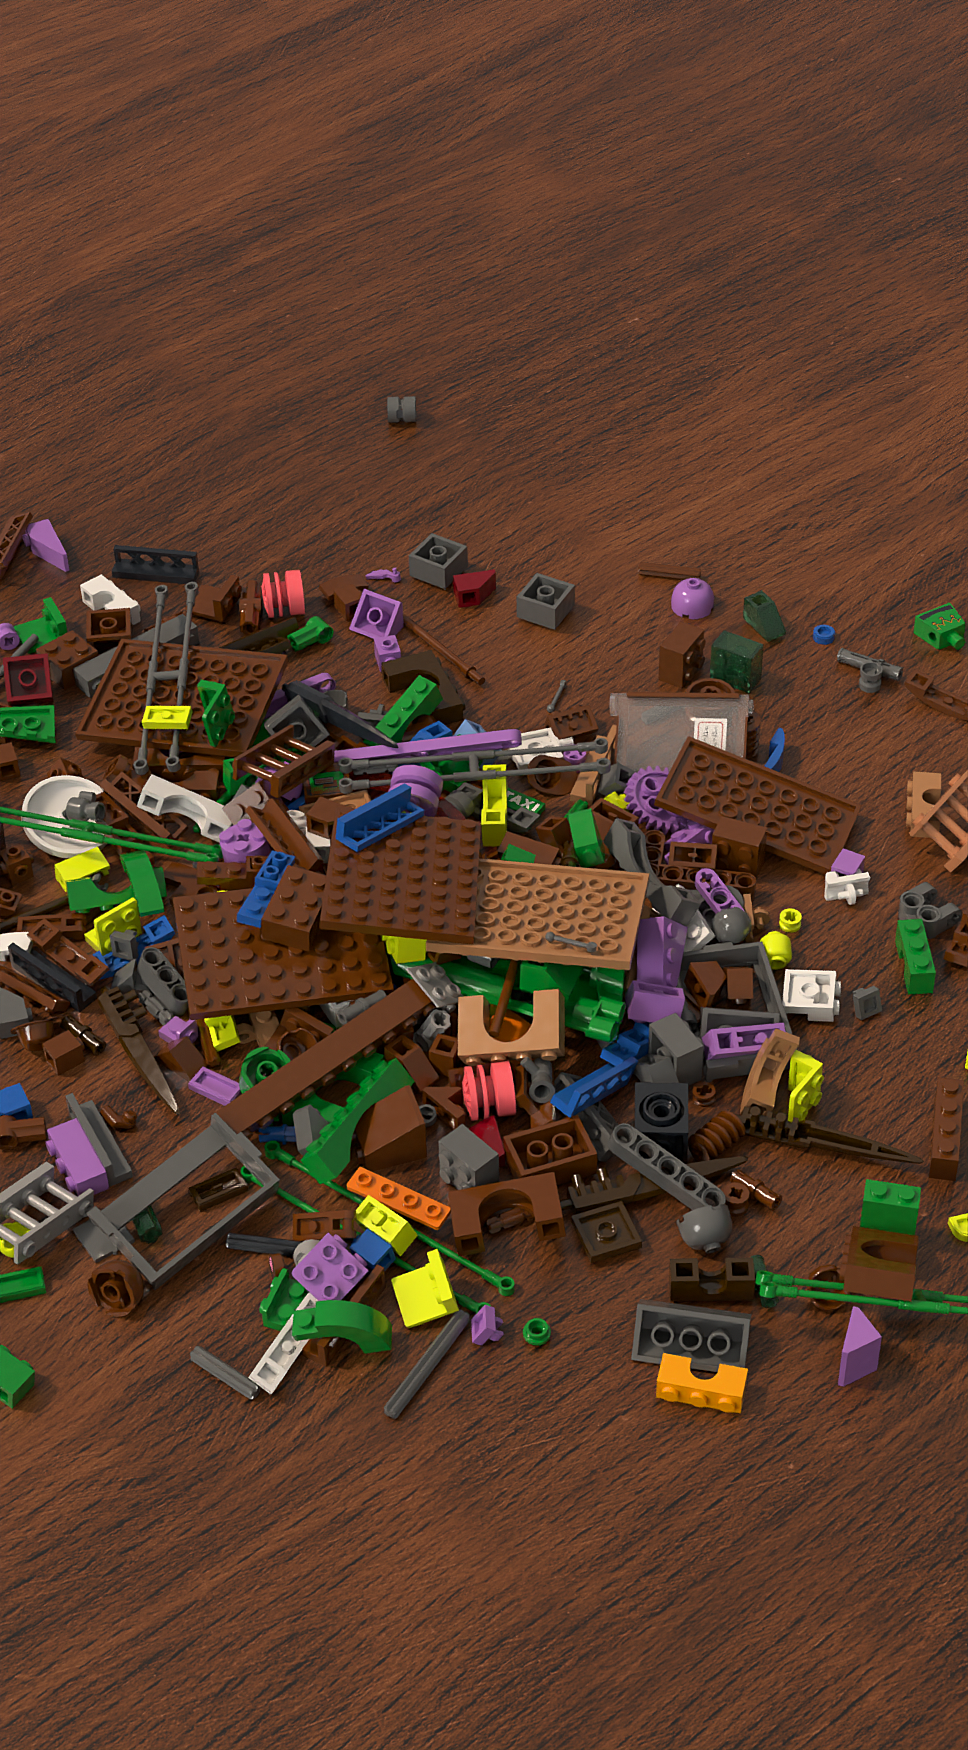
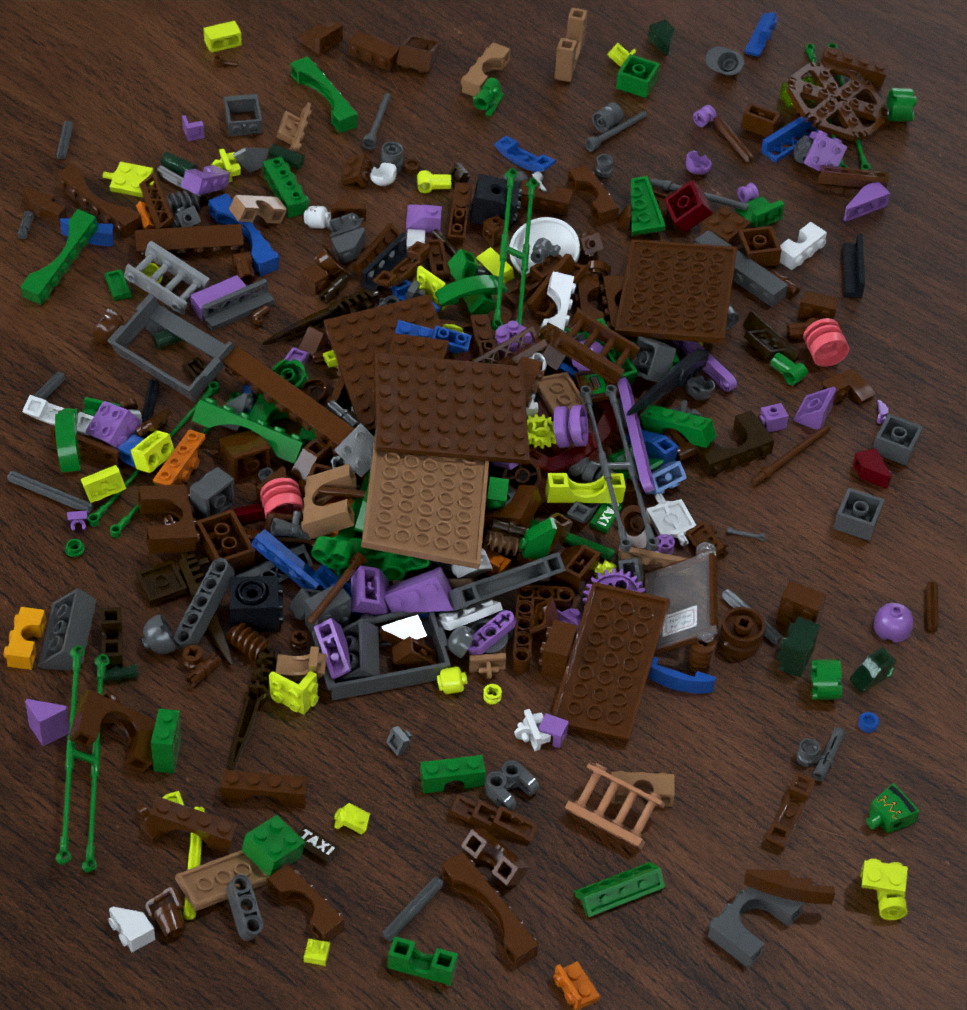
camera: 80 degrees right, 5 degrees up
(23, 744) = (624, 219): none -> reddish brown slope
(162, 593) = (787, 258): dark grey bar -> none
(167, 717) = (636, 276): neon yellow plate -> none
(217, 708) = (639, 300): green bracket -> none
(373, 816) = (504, 384): blue fence -> none
(591, 946) = (376, 518): dark grey hinge -> none
(664, 1022) = (355, 562): none -> reddish brown piece
(781, 647) = (826, 679): none -> green brick
(812, 994) = (402, 702): white plate -> none

